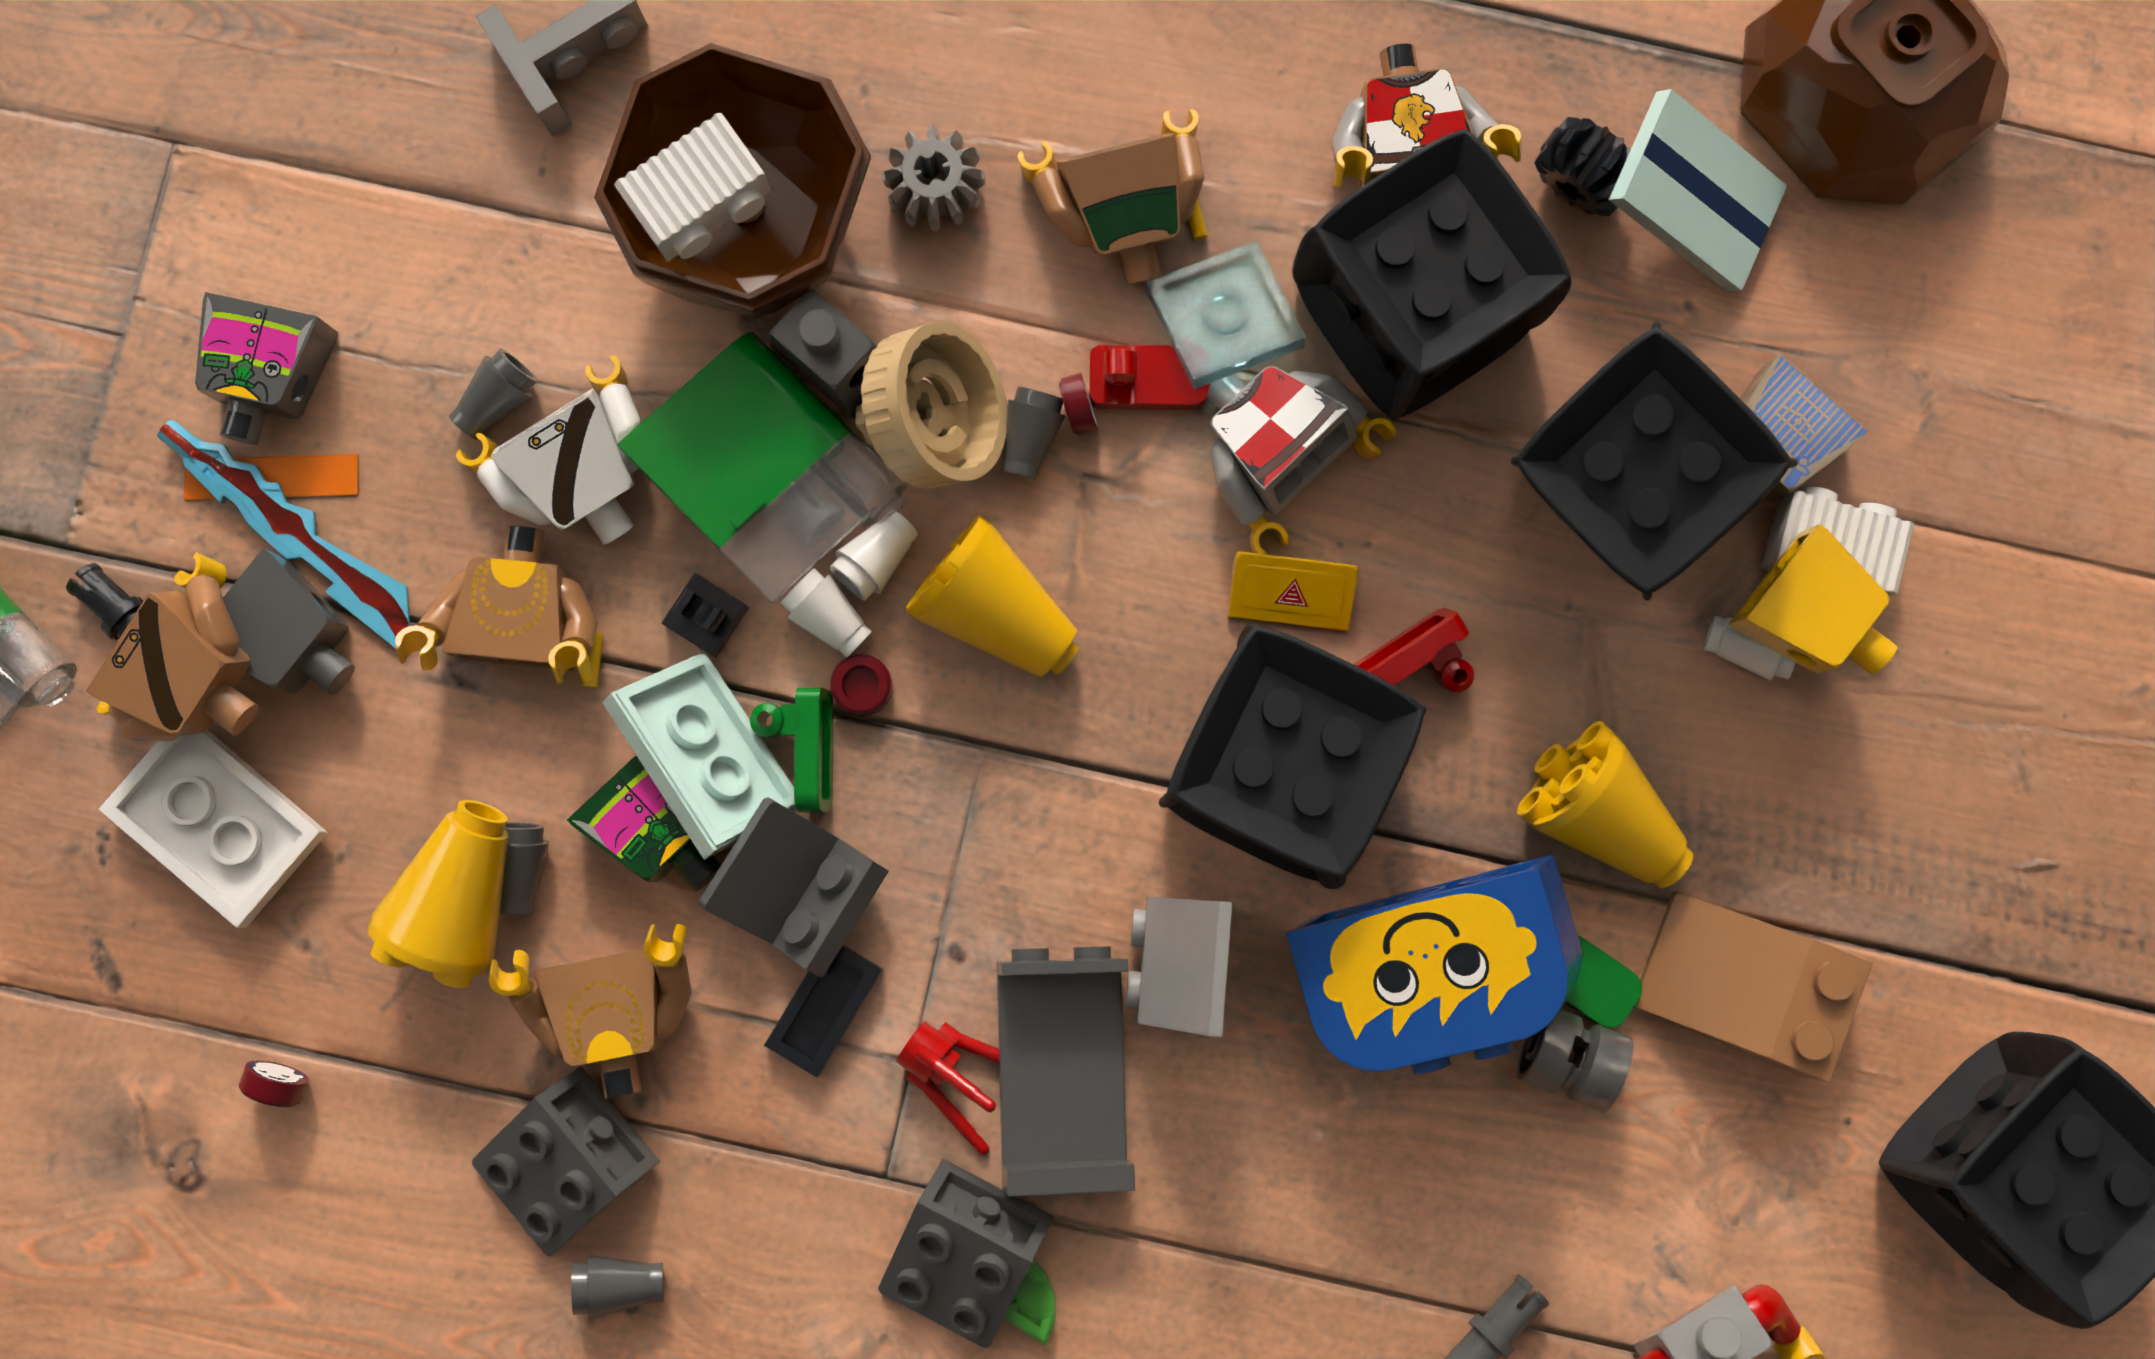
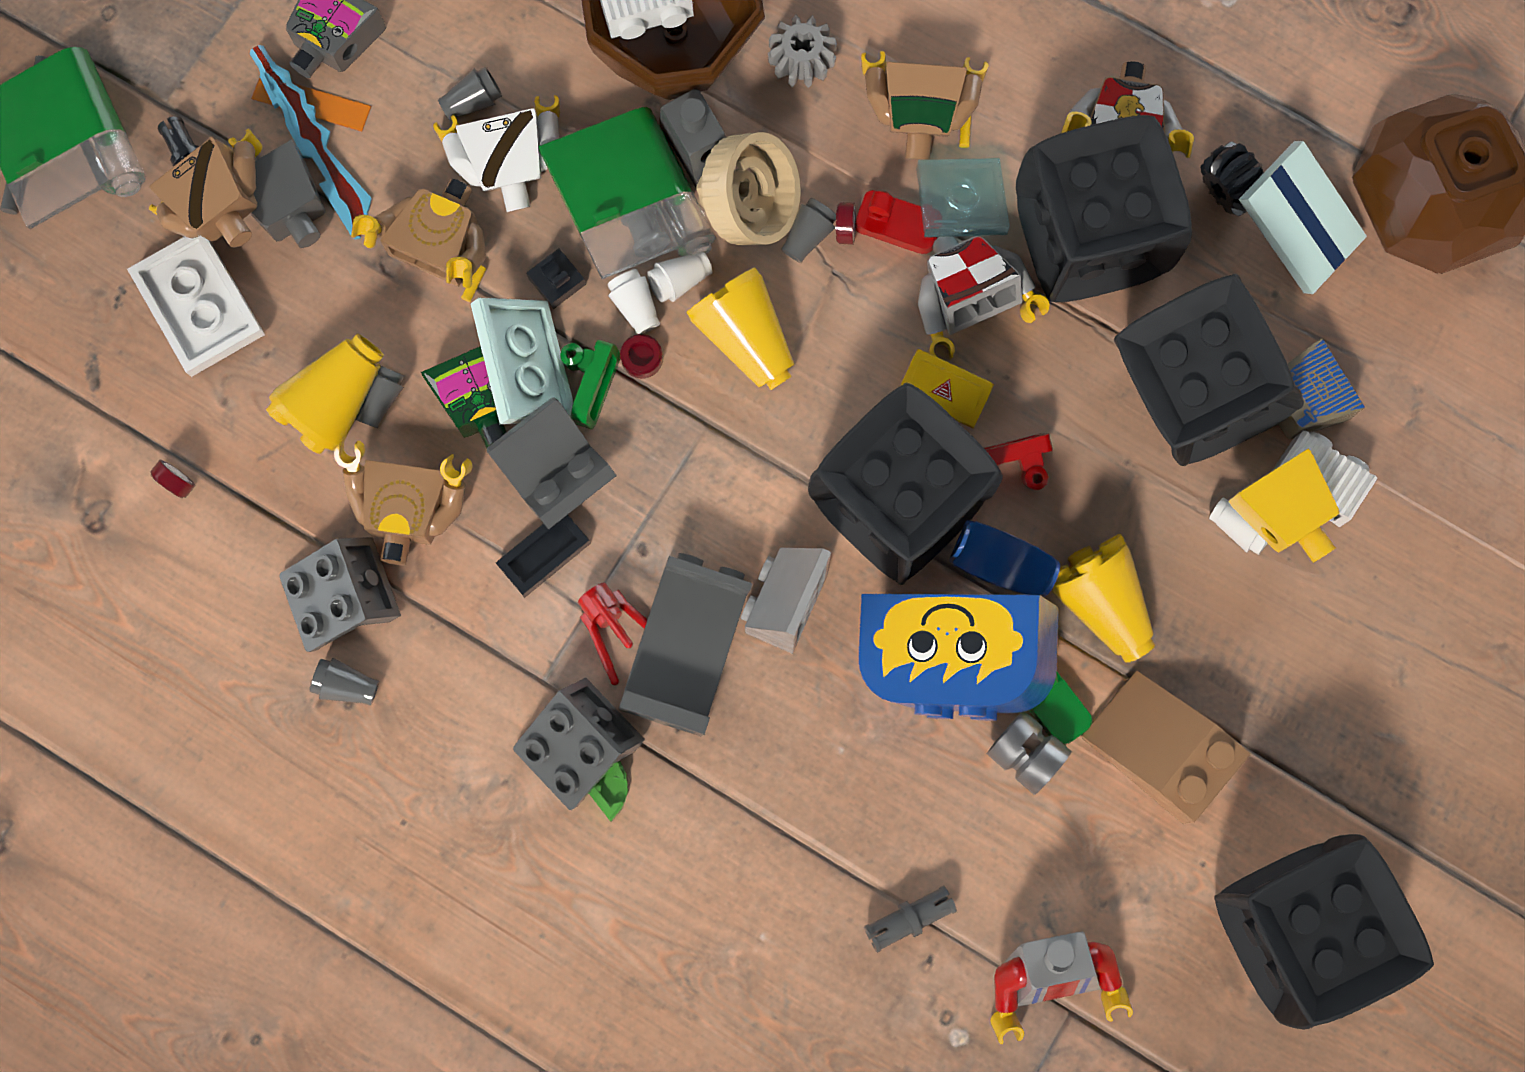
camera: 20 degrees right, 5 degrees down
(1462, 805) = (1004, 560): none -> blue piece

